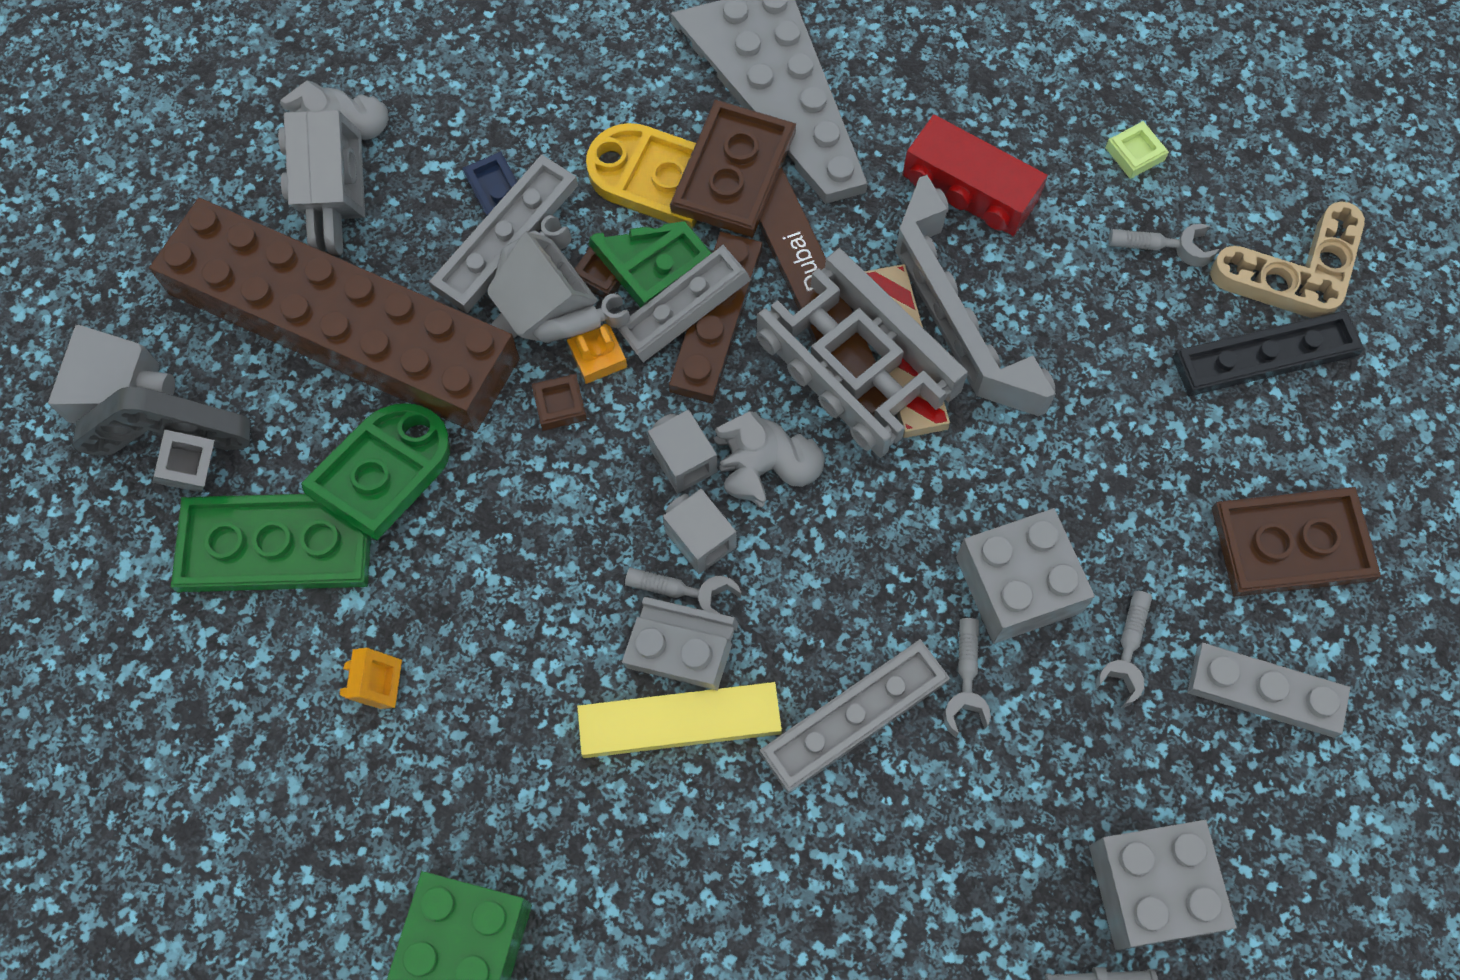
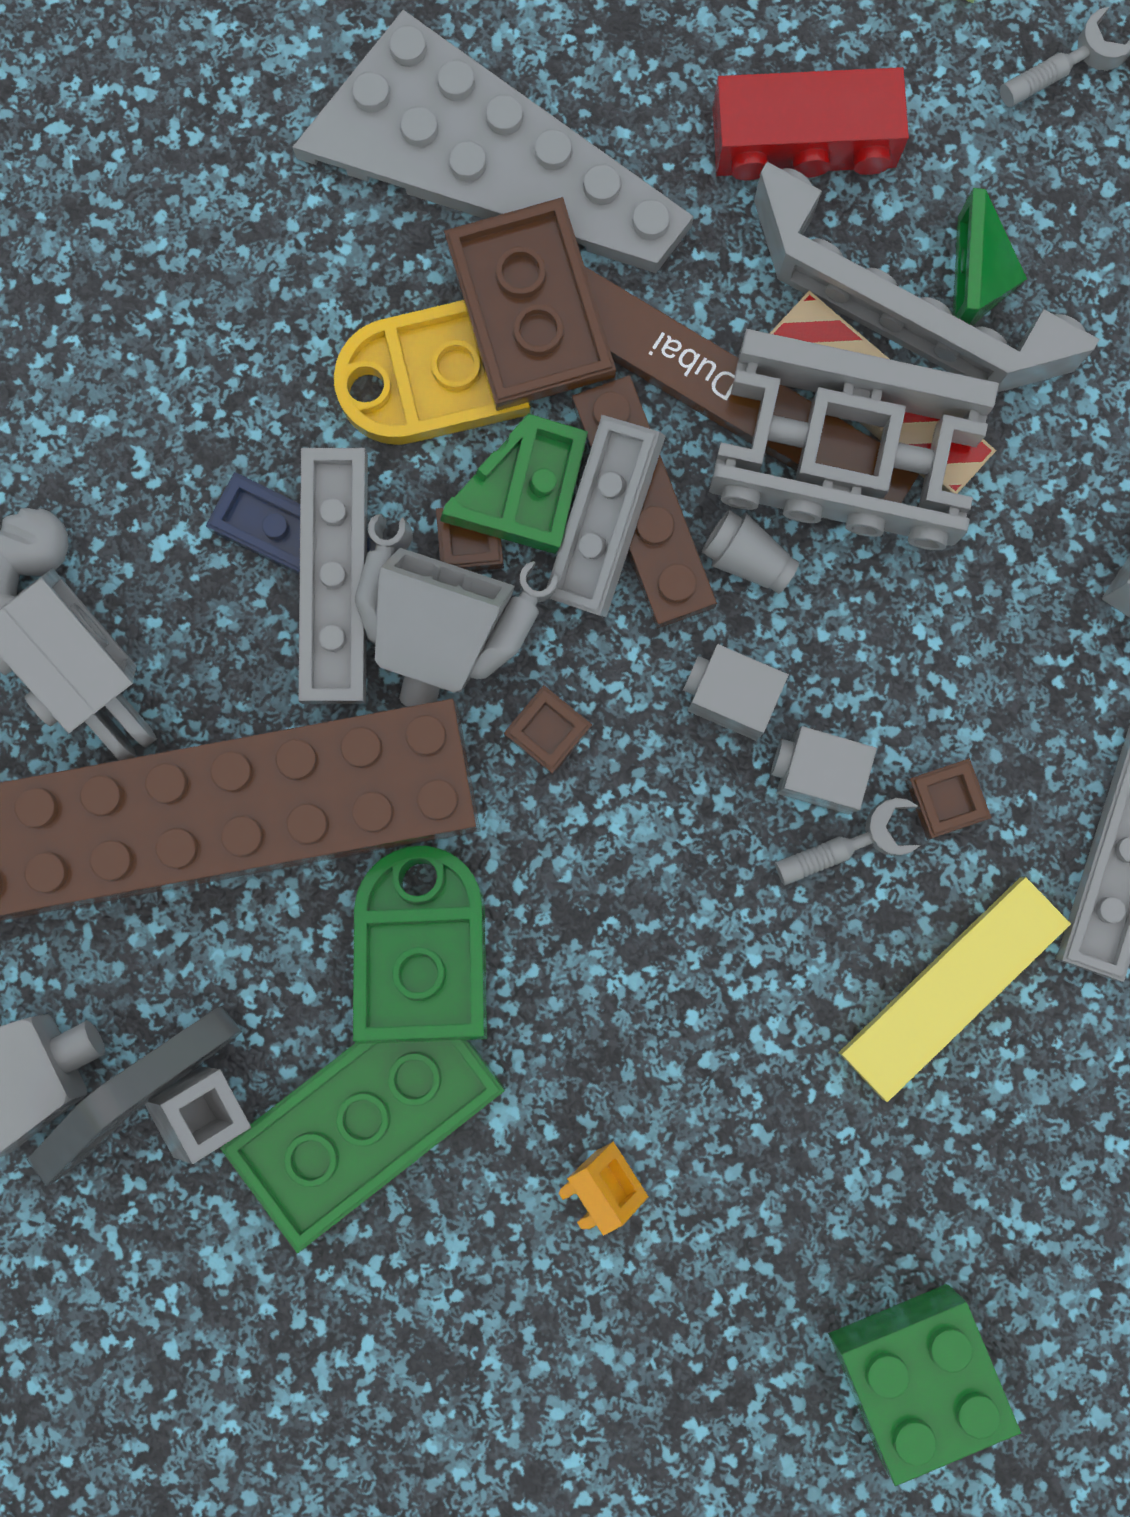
camera: 35 degrees left, 15 degrees up
(597, 353) = (550, 644): light orange tile -> none
(680, 643) = (897, 908): light grey plate -> none
(754, 380) = (749, 552): none -> light grey cone
(763, 446) = (818, 622): light grey animal -> none
(765, 605) = (948, 799): none -> reddish brown tile
(1024, 317) = (984, 260): none -> green slope

